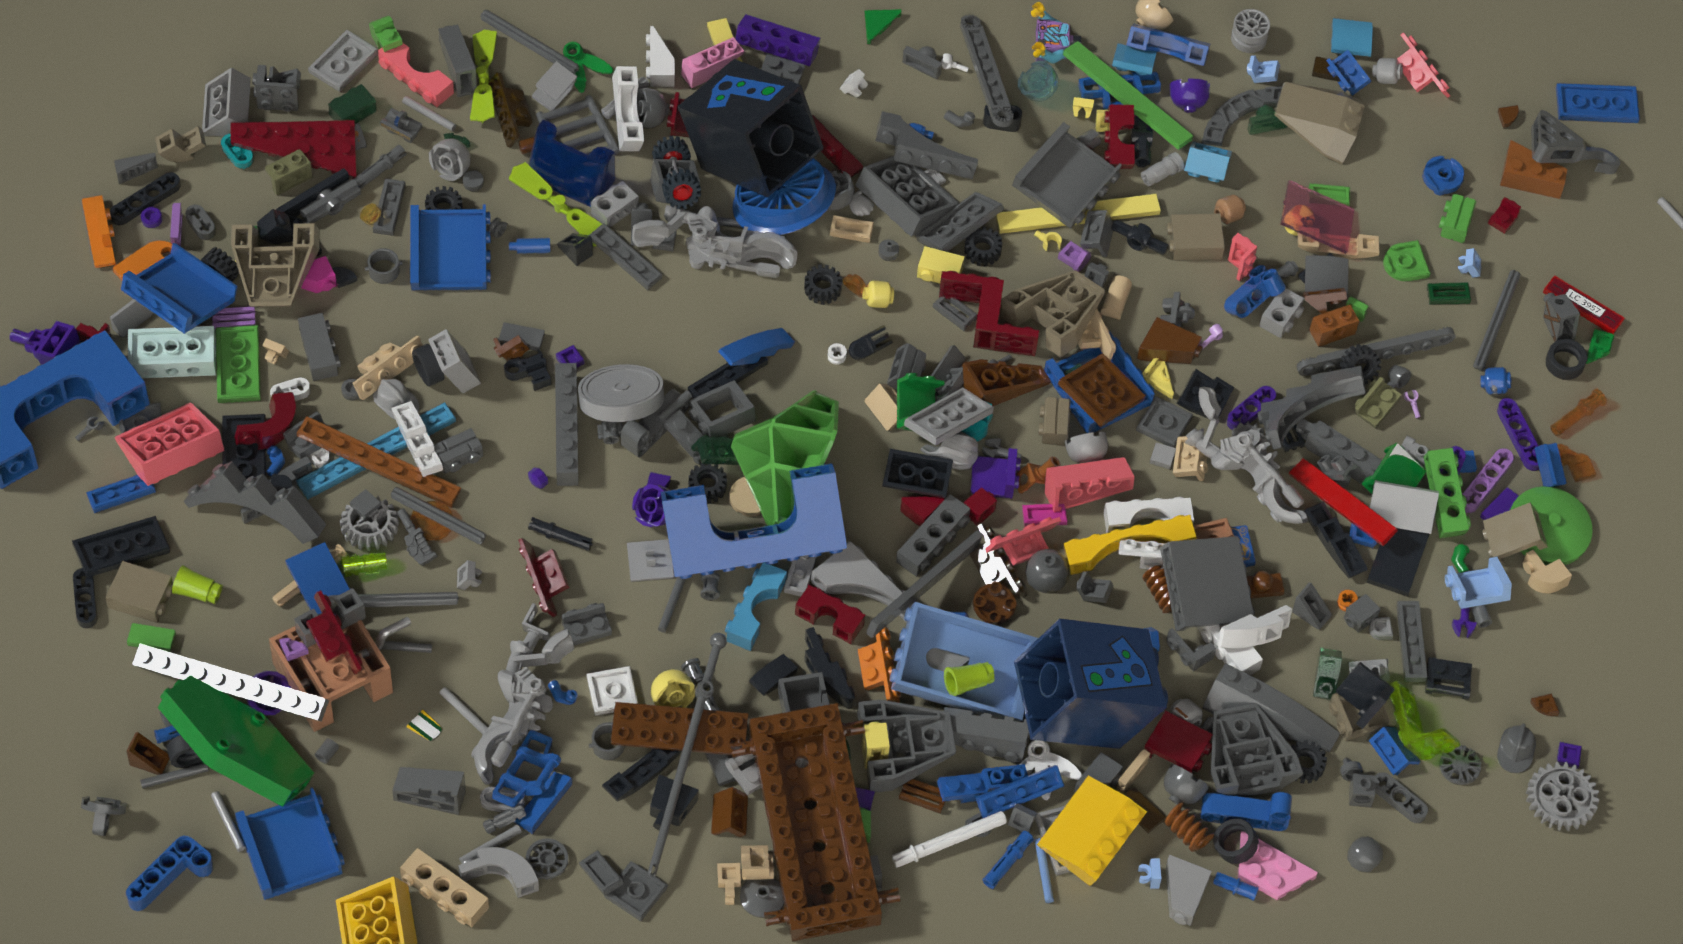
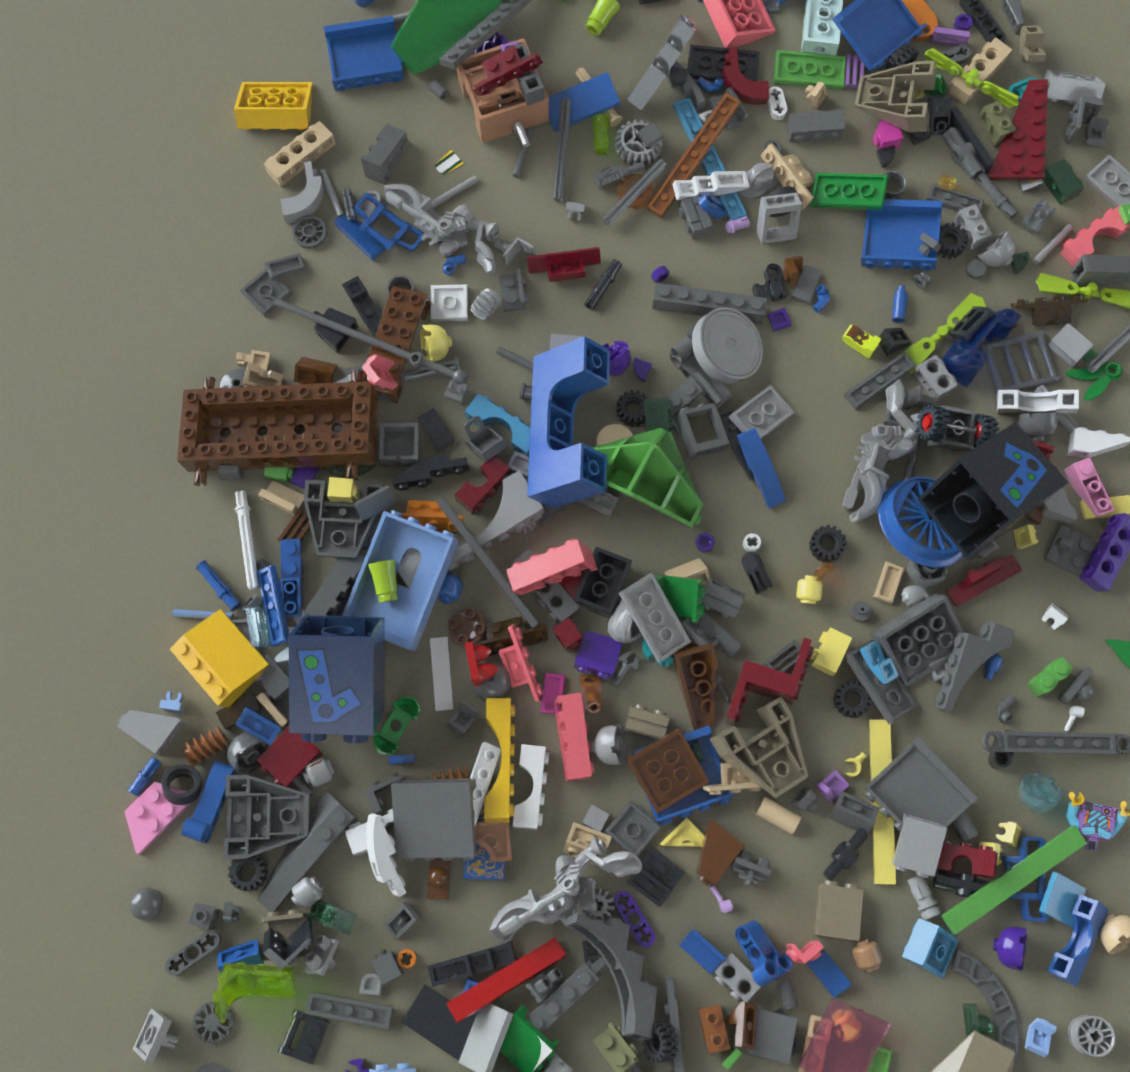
camera: 105 degrees right, 15 degrees up
(219, 193) = (987, 63): none -> tan brick
(239, 194) = (972, 78): none -> lime piece
(401, 301) = (849, 191): none -> green tile
(422, 182) = (975, 226): none -> light grey brick
(445, 432) = (712, 206): none -> blue beam
(461, 414) = (734, 225): none -> lavender pin
(465, 215) = (928, 244): none -> dark grey tile
(537, 318) = (823, 298): none -> blue arm
(548, 174) = (971, 323): none -> black plate
(583, 275) = (860, 341): none -> neon yellow leg
(612, 644) = (485, 304): none -> light grey gear
(690, 358) = (762, 412): none -> light grey tile
(724, 664) = (455, 392): none -> light grey tile
(727, 719) = (377, 371): none -> coral bracket
(782, 617) = (484, 440): none -> dark grey piece
(847, 395) = (705, 542): none -> dark purple tile
(884, 701) = (375, 502): none -> dark grey slope
(890, 816) = (282, 498): none -> tan panel
(919, 83) = (1049, 677): none -> bright green brick
(920, 516) = (551, 566): none -> coral wedge
(945, 222) = (881, 667): none -> dark azure slope
(1040, 625) = (441, 673): none -> white sticker
(1046, 570) = (481, 671): none -> red tile
(1048, 797) = (256, 627): none -> clear light blue tile
(1118, 169) = (919, 846): none -> light grey panel
(1154, 774) = (258, 725): none -> blue panel
(1260, 235) = (829, 974): none -> blue slope
(1264, 346) = (702, 951): none -> blue panel
(1311, 698) = (307, 892): none -> light grey head
(1491, 808) = (153, 1036): none -> light grey tile

